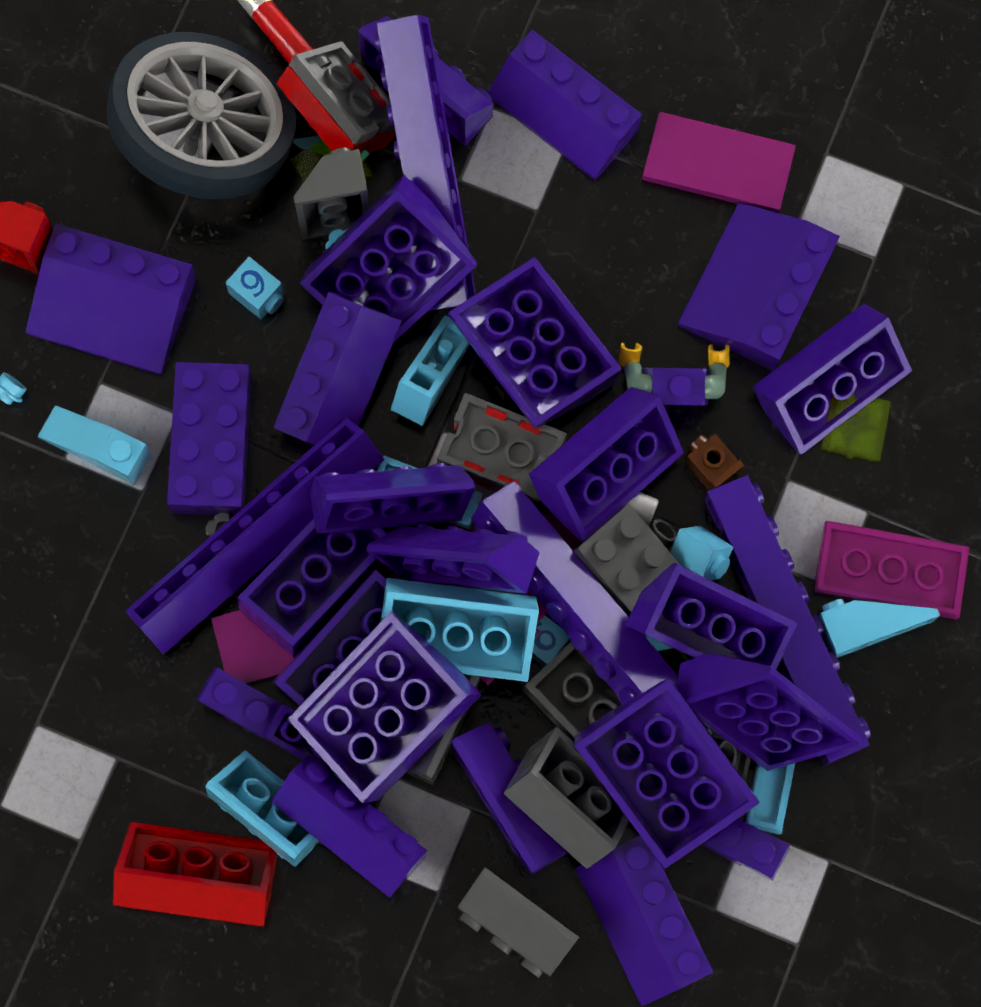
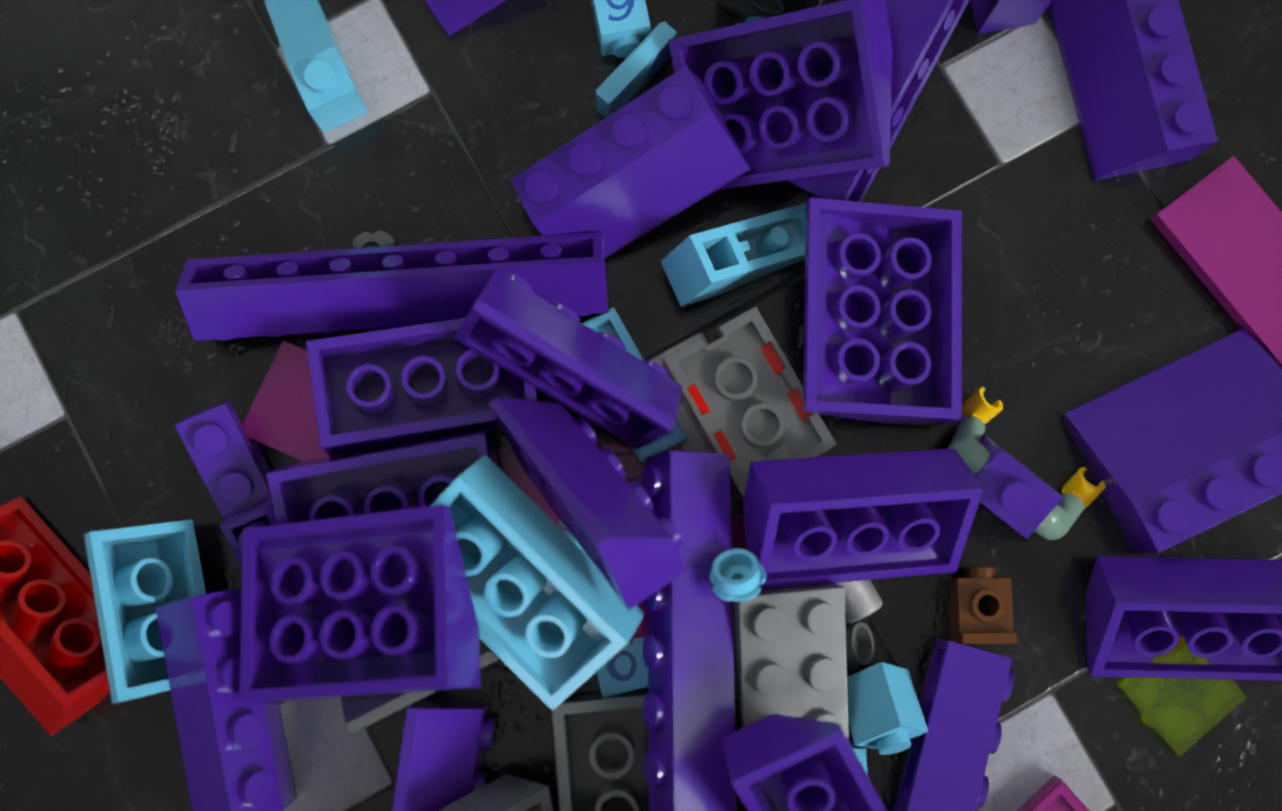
camera: 40 degrees right, 5 degrees up
(209, 438) = (437, 139): dark purple brick -> none
(290, 314) = (635, 70): none -> medium azure tile
(567, 537) = (736, 565): none -> medium azure plate

